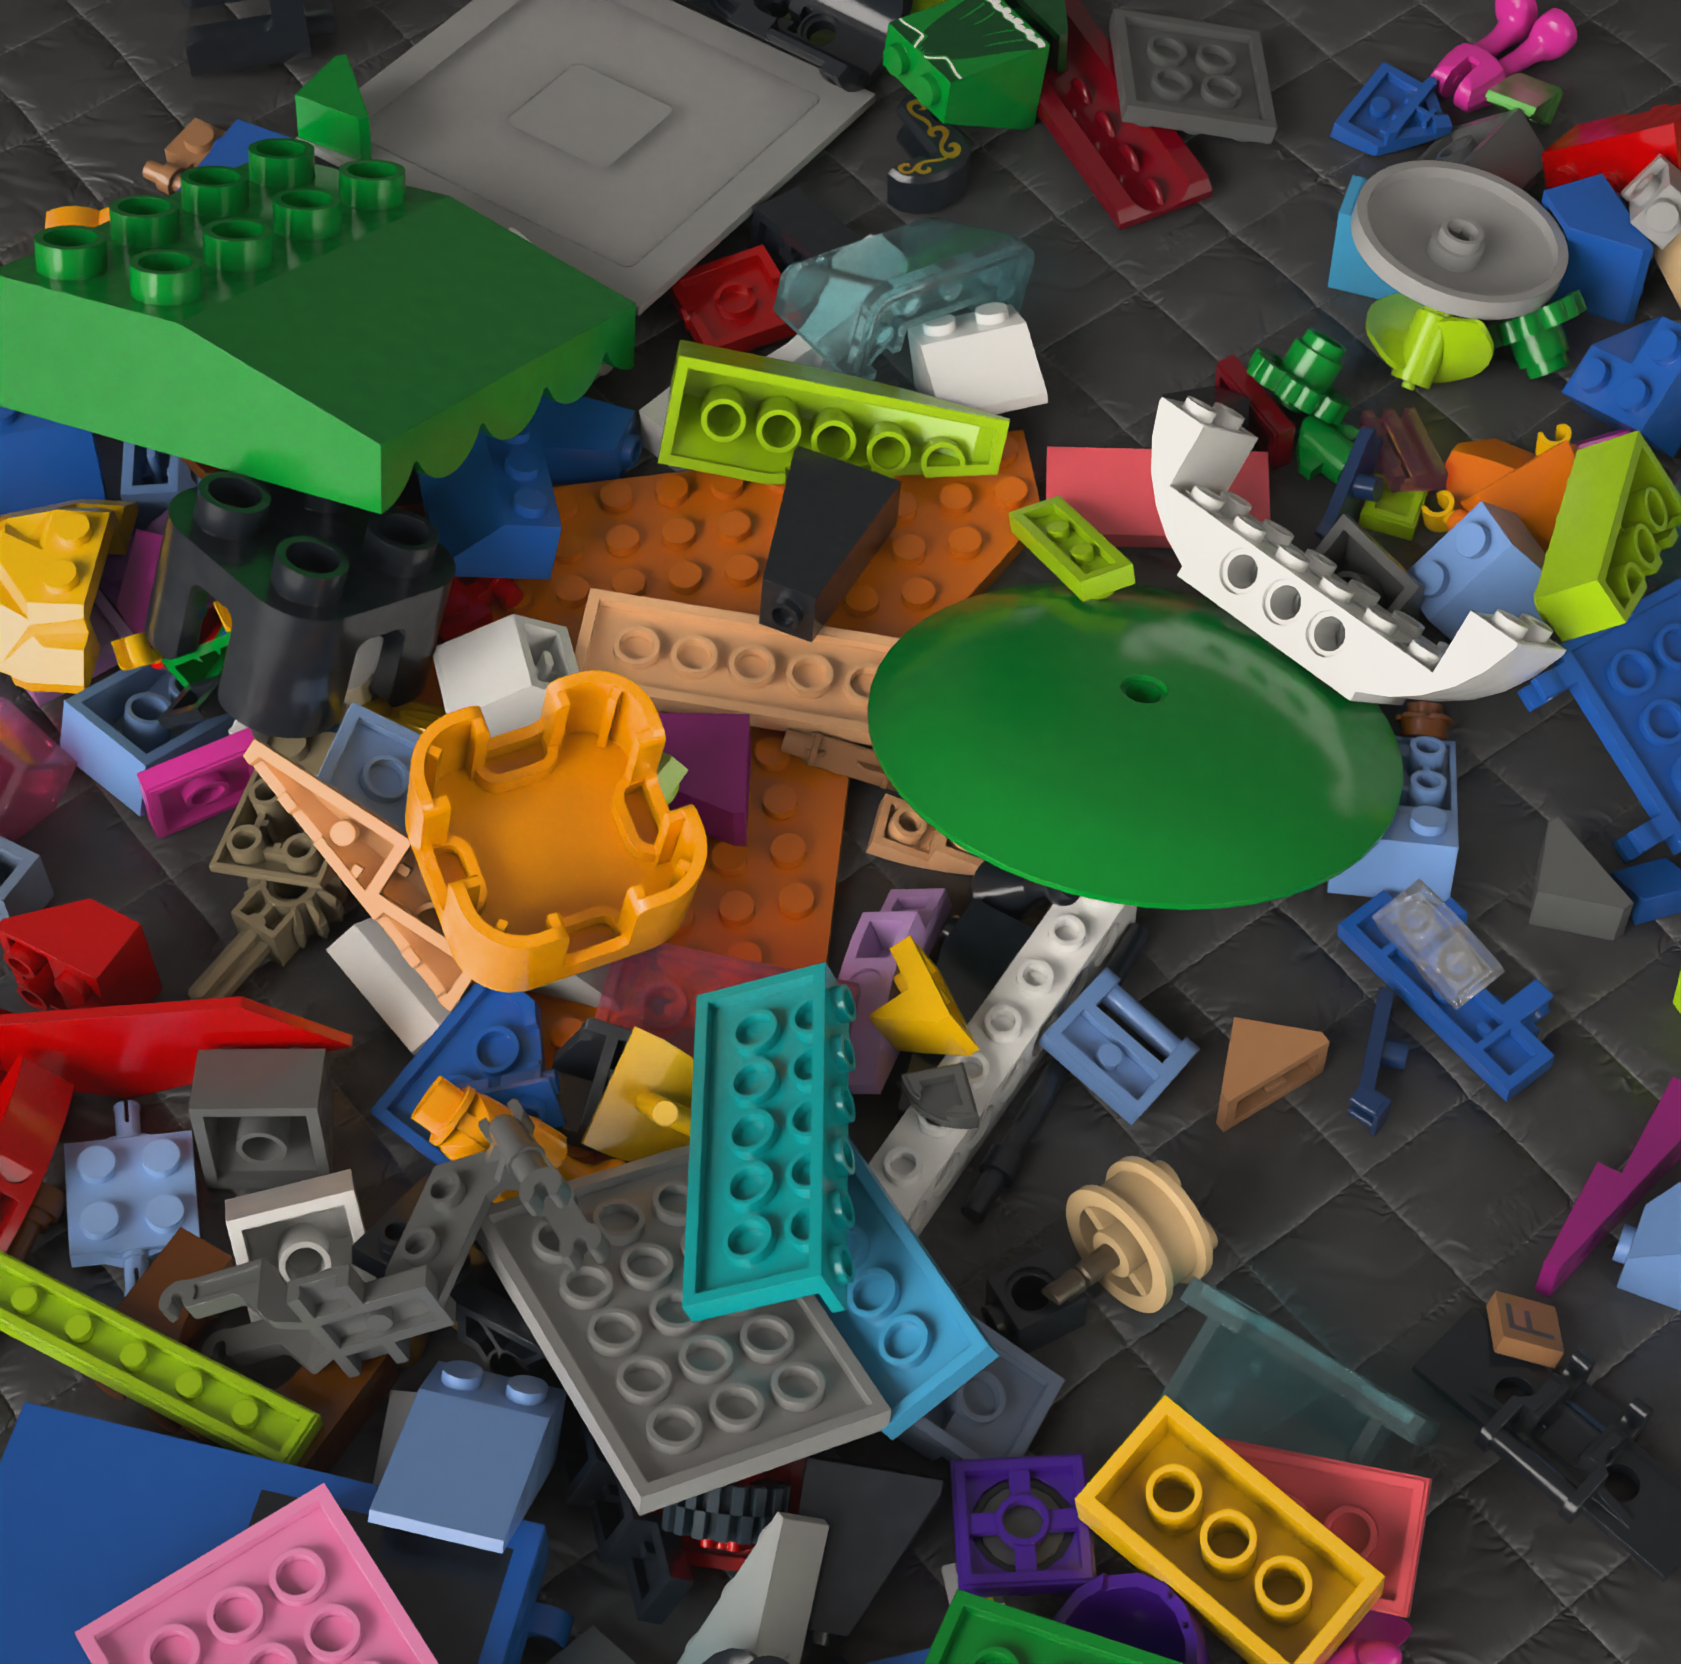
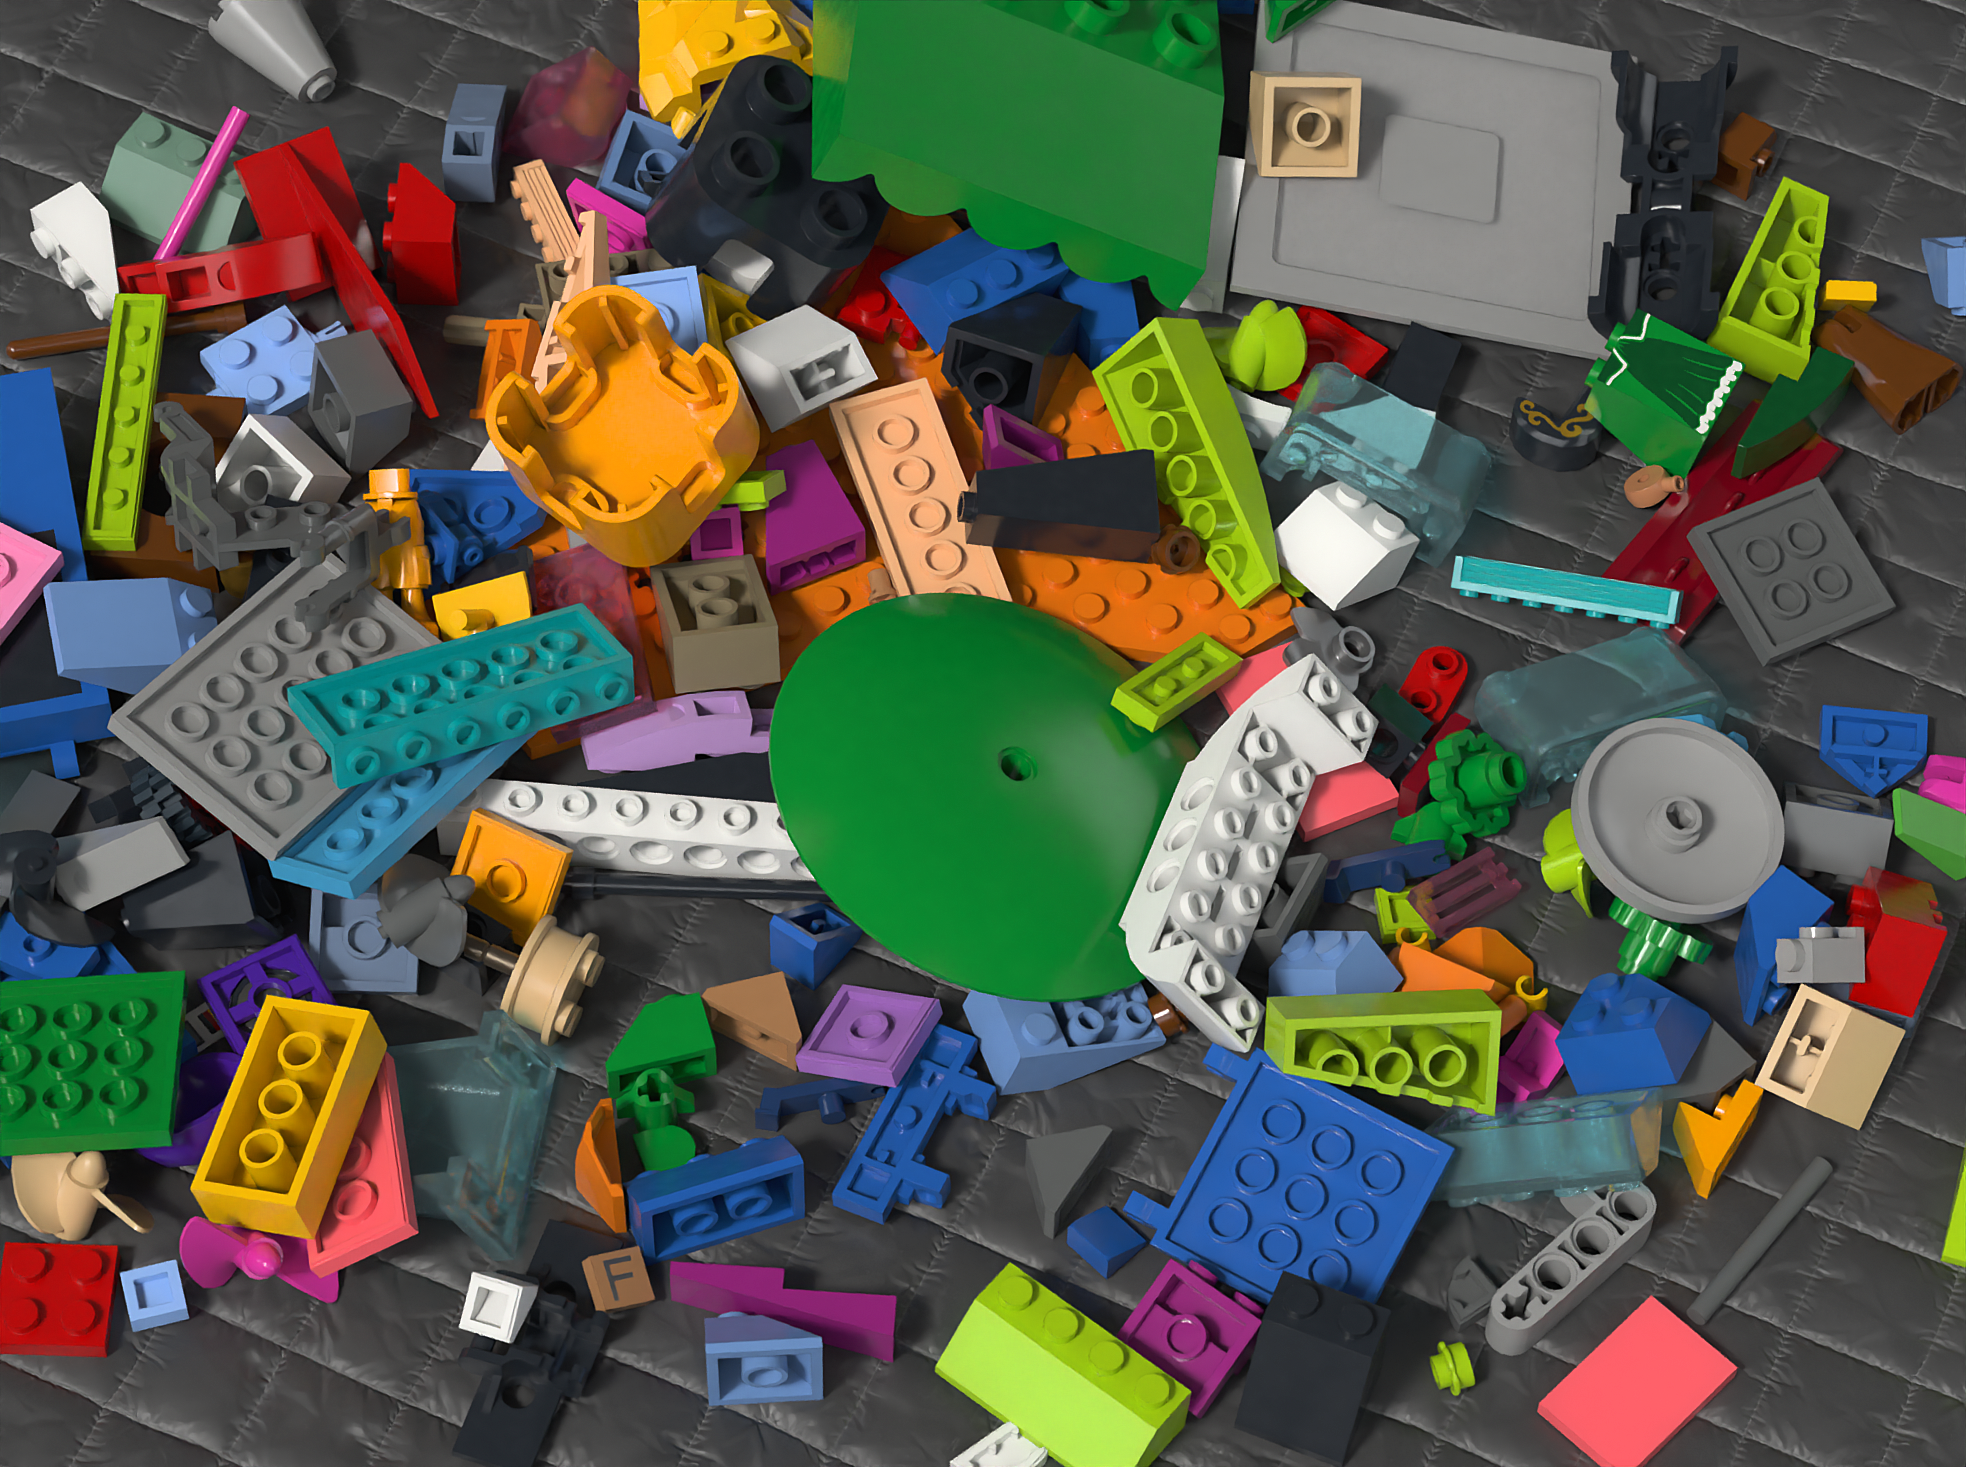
camera: 60 degrees right, 0 degrees up
(128, 852) = (545, 210): none -> light nougat piece
(314, 960) = (509, 348): none -> orange slope
(496, 164) = (1305, 123): none -> tan slope
(619, 511) = (1012, 355): none -> black slope
(716, 567) = (1015, 442): none -> magenta slope
(722, 318) = (1261, 352): none -> lime piece
(779, 897) = (716, 624): none -> dark tan slope
(915, 487) = (1185, 552): none -> reddish brown plate
(925, 1012) = (666, 753): yellow slope -> none
(942, 1096) = (587, 797): dark grey tile -> none
(979, 1219) = (513, 871): none -> light orange tile
(1027, 1307) = (424, 909): none -> dark grey piece
(1031, 133) = (1651, 486): none -> nougat piece
(1082, 432) = (1344, 651): none -> flat silver plate
(1110, 1058) = (708, 906): medium blue plate -> none
(1118, 234) = (1567, 591): none -> teal piece
(1146, 374) = (1436, 687): none -> red plate
(1190, 987) = (810, 942): none -> blue slope
(1251, 1168) = (665, 1037): none -> green slope
(1262, 260) = (1571, 703): none -> clear light blue windscreen
(1325, 1207) = (654, 1101): none -> green piece
(1337, 978) = (869, 1035): none -> medium lavender plate
(1377, 1227) = (664, 1148): none -> green tile
(1384, 1289) = (599, 1167): none -> orange slope
(1438, 944) = (924, 1085): clear slope -> none
(1468, 1191) = (715, 1198): none -> blue slope
(1536, 1444) = (497, 1305): none -> white slope

